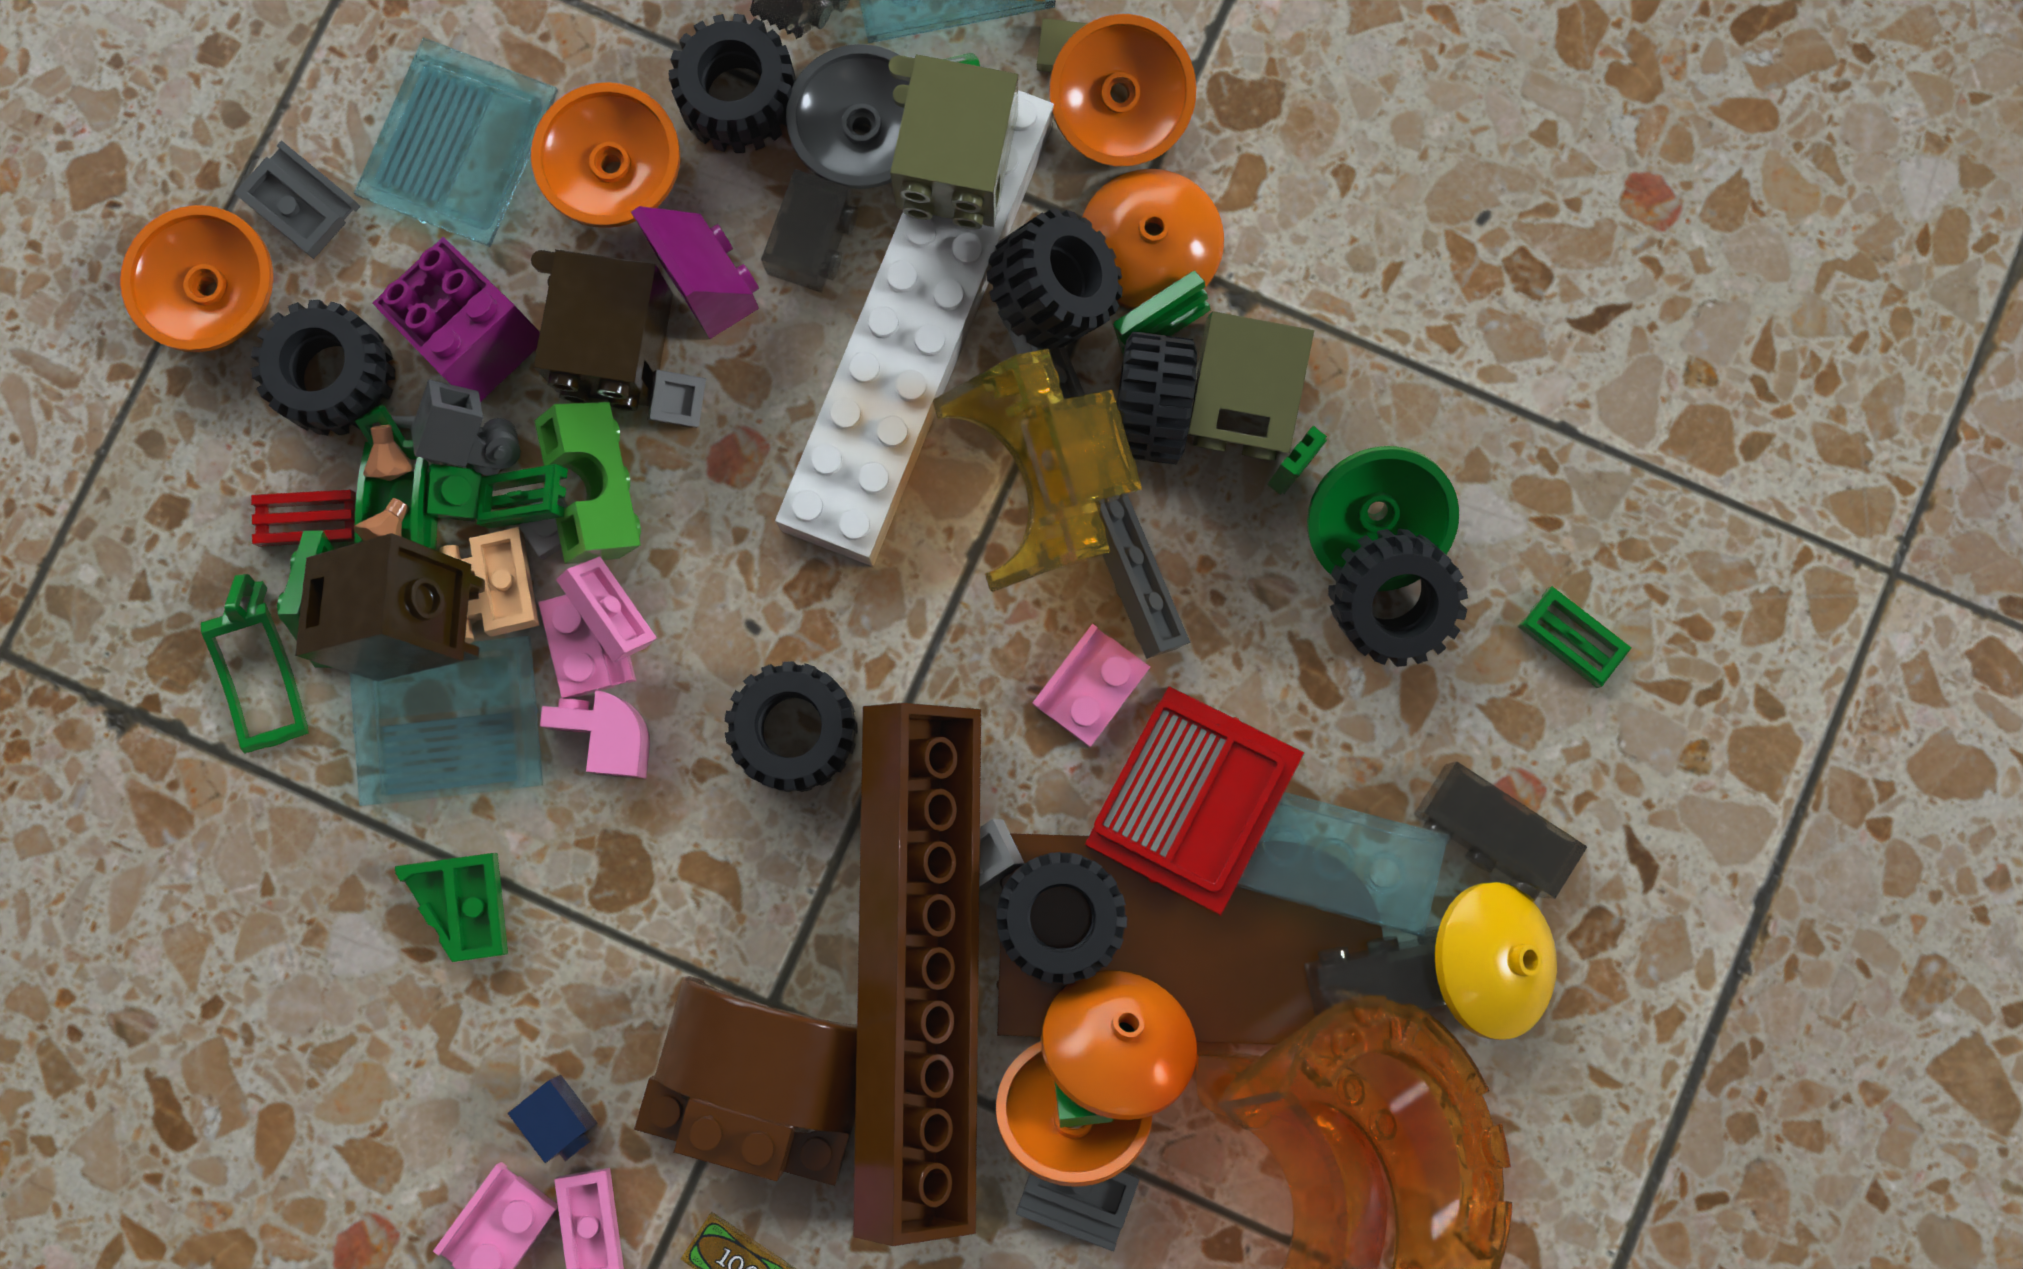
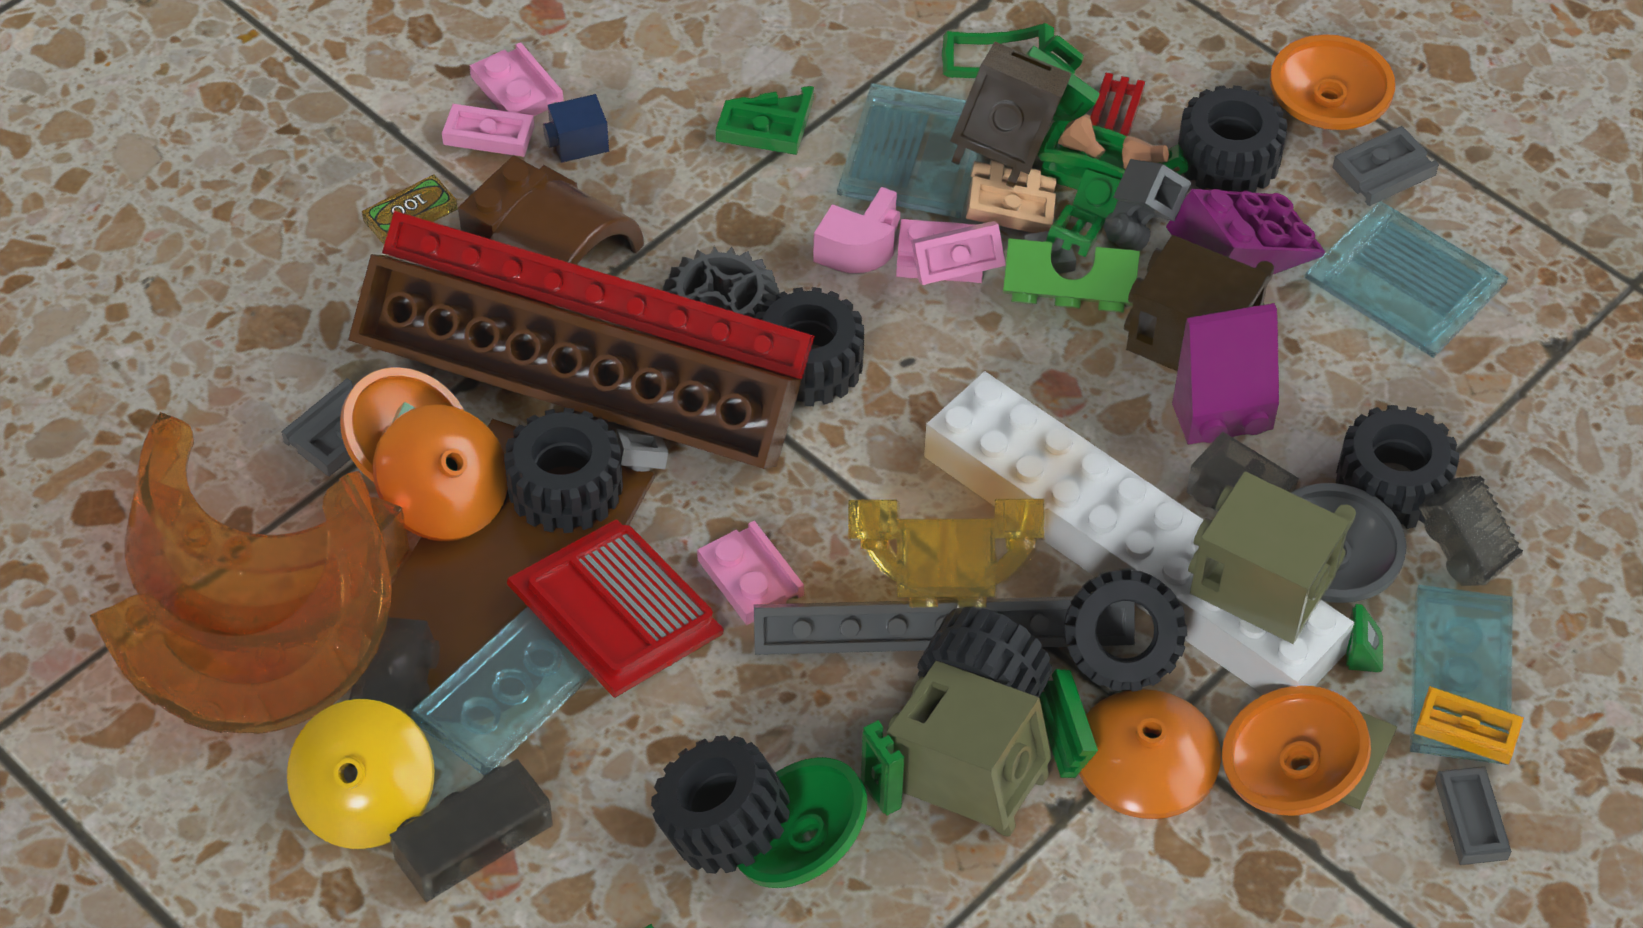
camera: 110 degrees right, 30 degrees down
(601, 127) = (1355, 356): orange dish -> none
(676, 398) = (1122, 354): light grey plate -> none
(771, 832) = (724, 281): none -> dark grey gear
(844, 975) = (599, 295): none -> red plate

